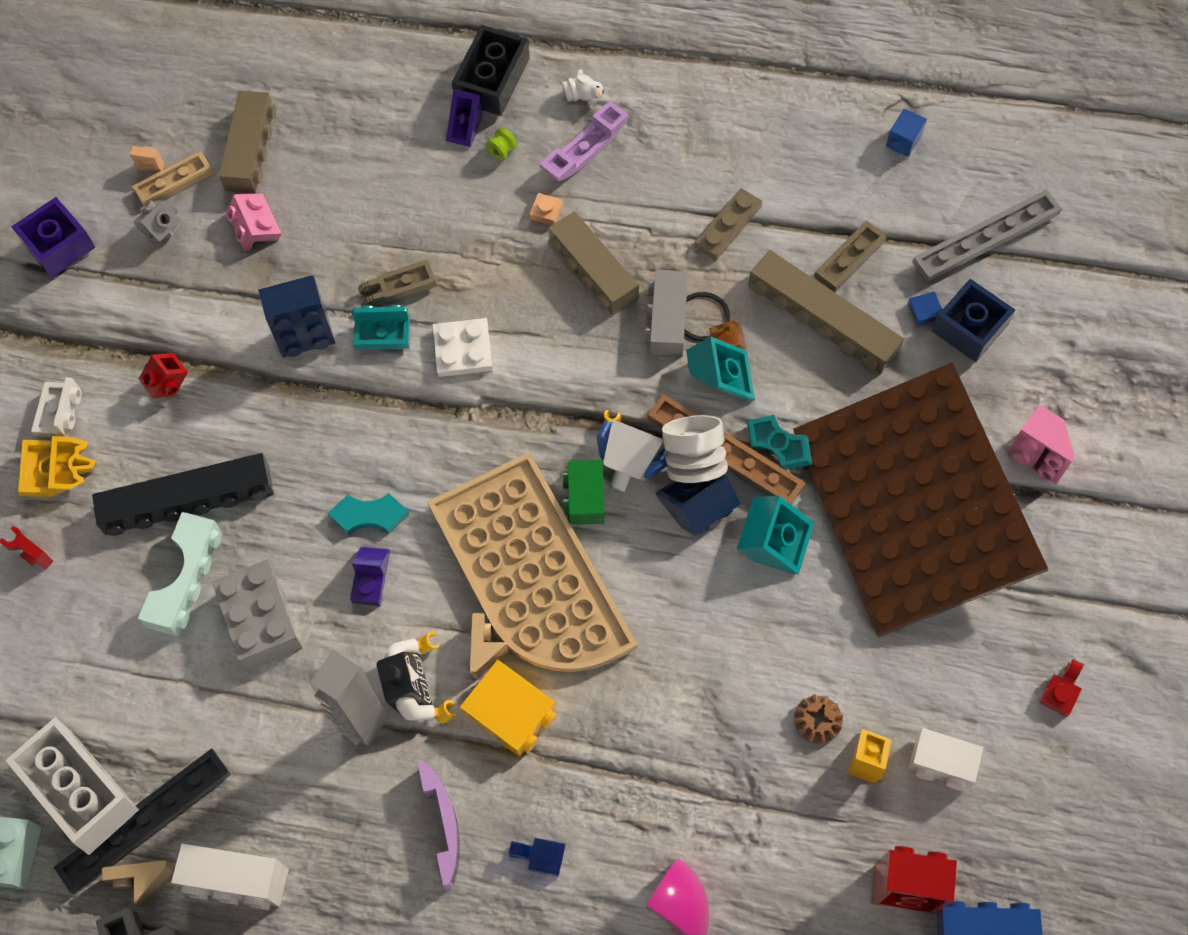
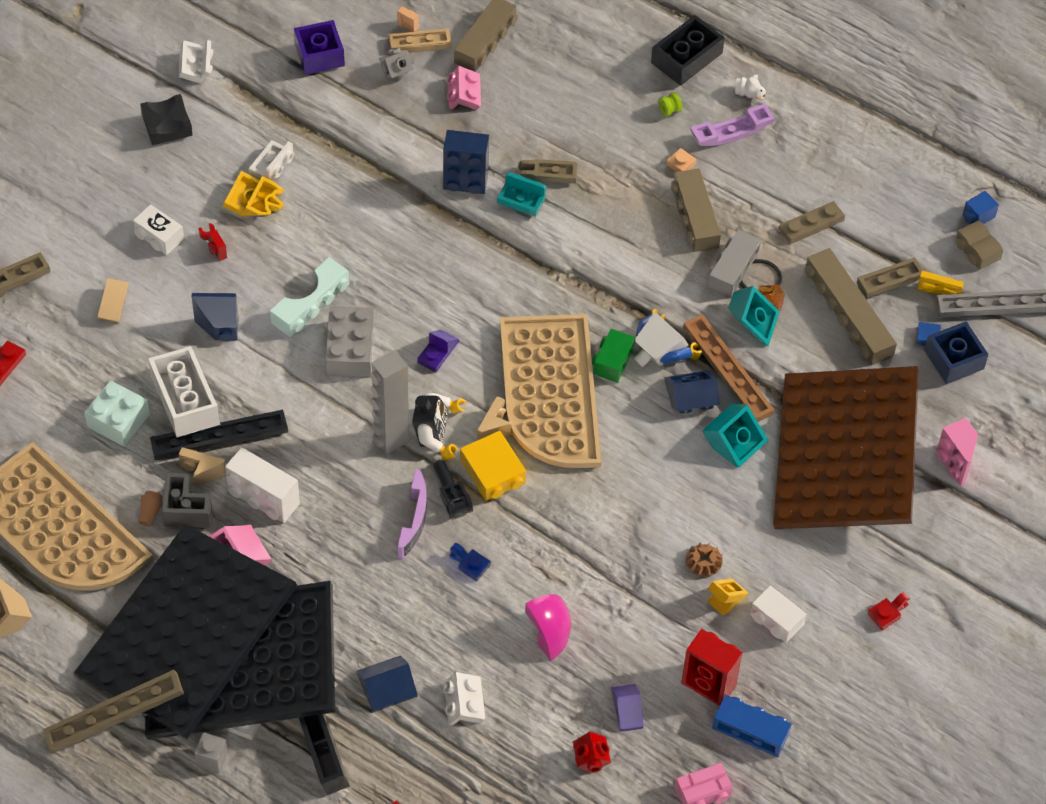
camera: 20 degrees right, 10 degrees down
(74, 653) = (217, 314): none -> dark blue slope
(163, 375) = (354, 166): red brick -> none
(186, 492) = (344, 248): black brick -> none
(355, 514) = (463, 314): teal tile -> none
(462, 347) = (574, 230): white plate -> none
(464, 118) = (652, 76): dark purple slope -> none
(475, 768) = (452, 493): none -> black connector
(695, 449) = (702, 356): white wheel -> none
(790, 449) = (774, 384): teal tile -> none
(909, 242) = (939, 284): none -> yellow tile
(926, 175) = (979, 245): none -> dark tan brick

